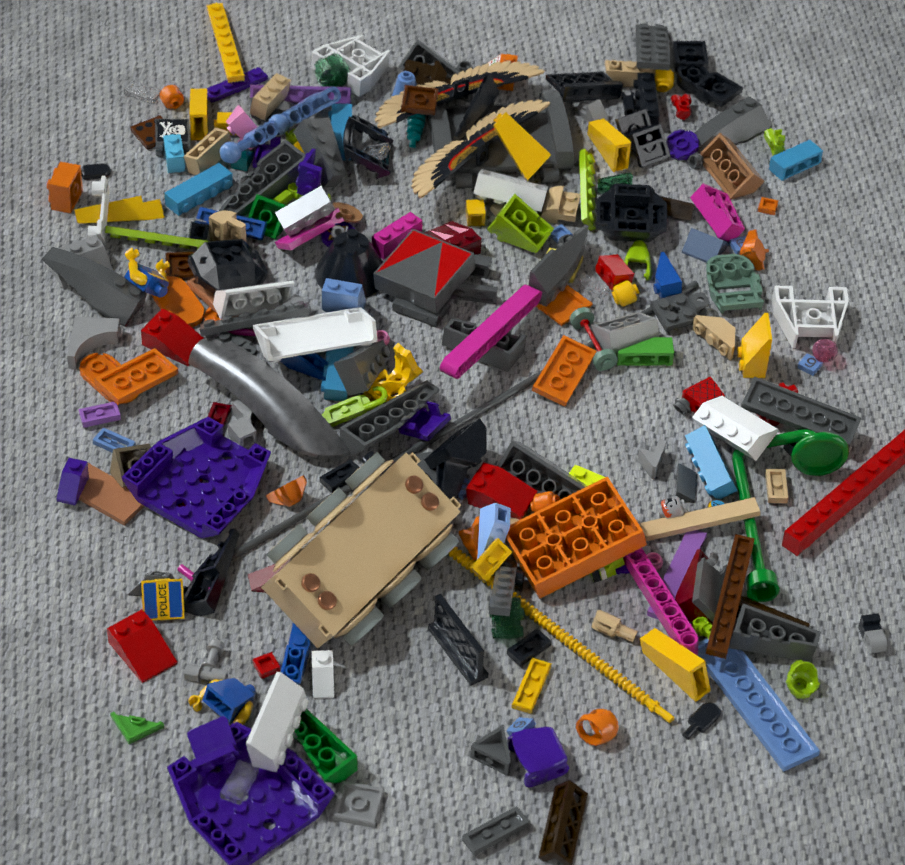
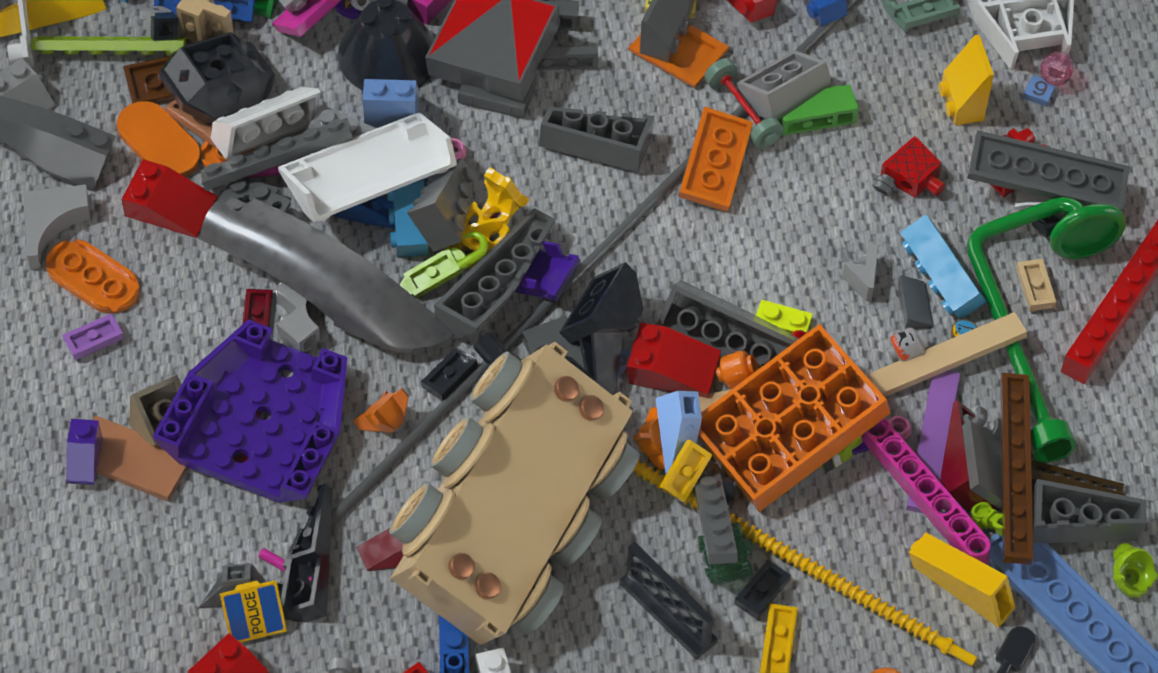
camera: 10 degrees left, 10 degrees up
(109, 445) = (99, 376): medium blue tile -> none
(136, 376) = (131, 270): orange plate -> none
(145, 277) = (111, 116): torso -> none
(490, 331) = (607, 122): dark pink beam -> none
(612, 626) = (866, 537): tan arm -> none
(625, 293) = (770, 25): yellow head -> none
(686, 308) = (860, 33): dark grey plate -> none
(717, 333) = (908, 66): tan slope -> none
(735, 426) = (966, 207): white slope -> none

